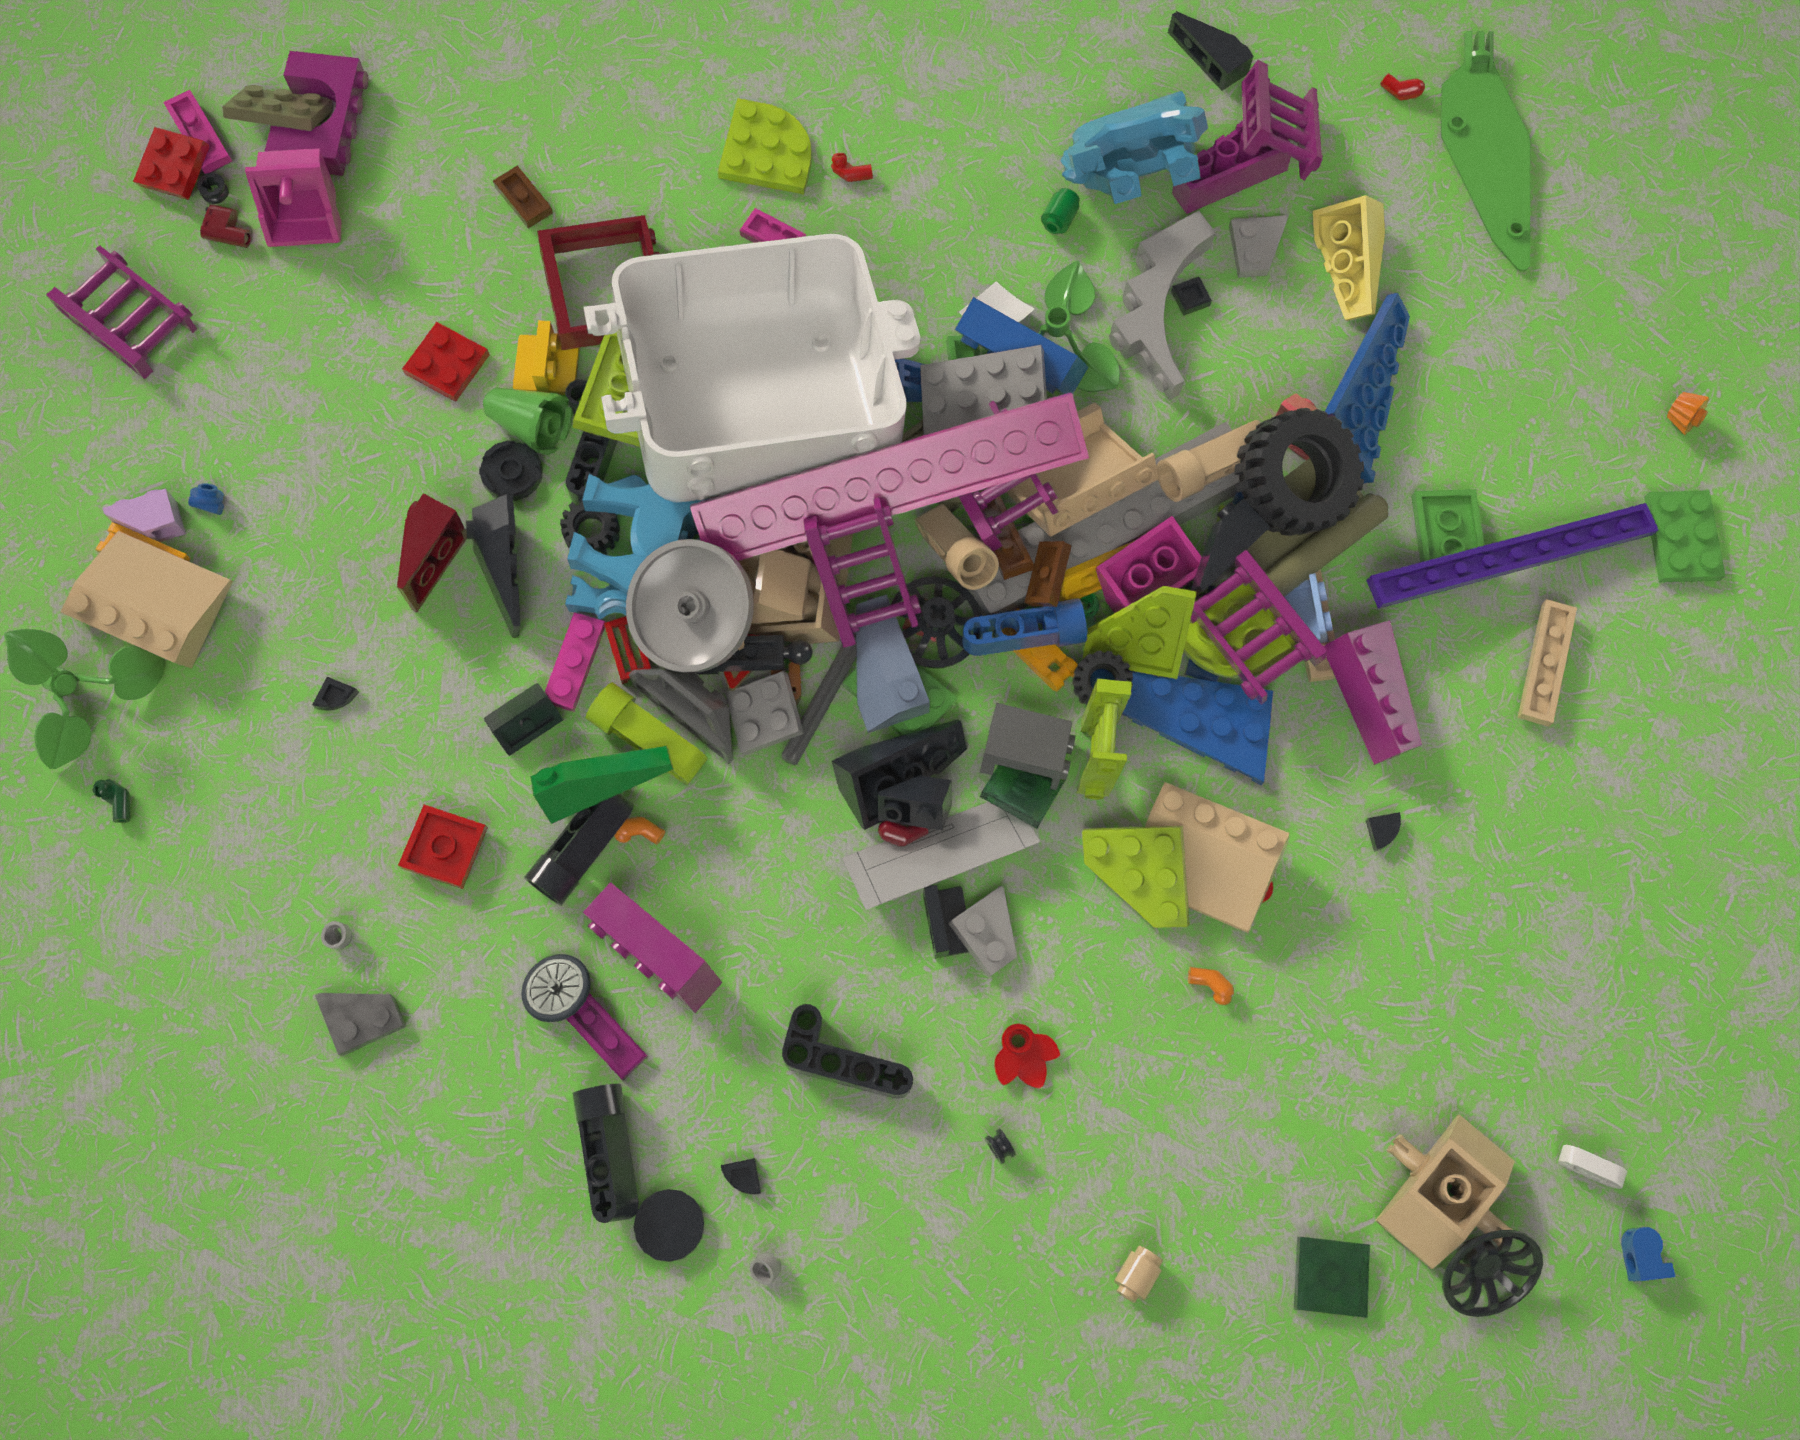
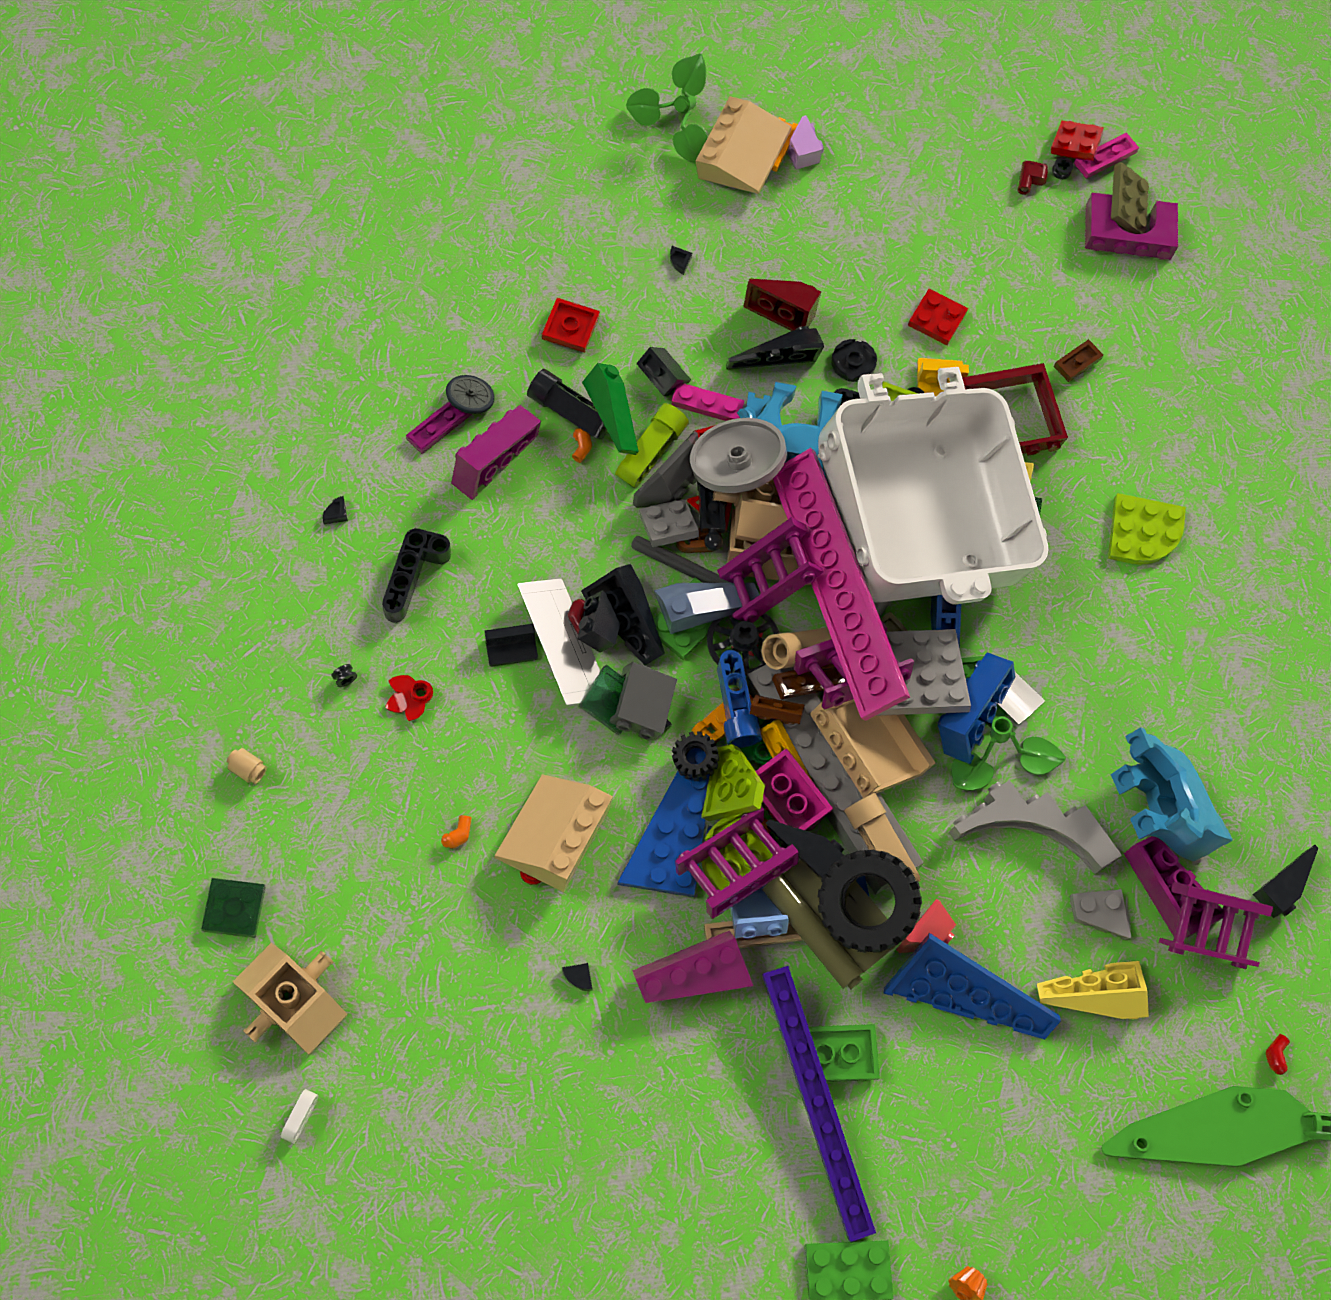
camera: 85 degrees right, 5 degrees down
(114, 338) = (948, 103): magenta fence -> none
(115, 795) = (607, 141): dark green arm -> none
(207, 498) = (821, 178): blue plate -> none
(294, 198) = (1055, 212): dark pink piece -> none
(331, 936) = (510, 266): light grey hinge -> none
(359, 1018) = (454, 282): flat silver wing -> none
(531, 416) = (895, 362): bright green cone -> none
(577, 515) = (800, 399): black tyre -> none
(606, 1152) = (354, 424): black beam -> none
(669, 1225) = (305, 466): black tile -> none
(759, 1273) = (271, 523): light grey hinge -> none
(763, 228) = (1066, 532): dark pink plate -> none
(849, 172) = (1130, 589): red arm -> none
(987, 932) = (502, 673): light grey wing -> none
(1060, 211) = (1111, 748): green brick -> none
(1101, 722) = (641, 742): lime fence -> none
(1143, 869) = (546, 784): lime plate -> none
(1191, 296) = (1046, 853): black tile -> none
(1486, 1263) = (231, 1018): black wheel -> none
(1547, 663) = (724, 1127): tan plate -> none
(1642, 1255) = (227, 1149): blue leg -> none

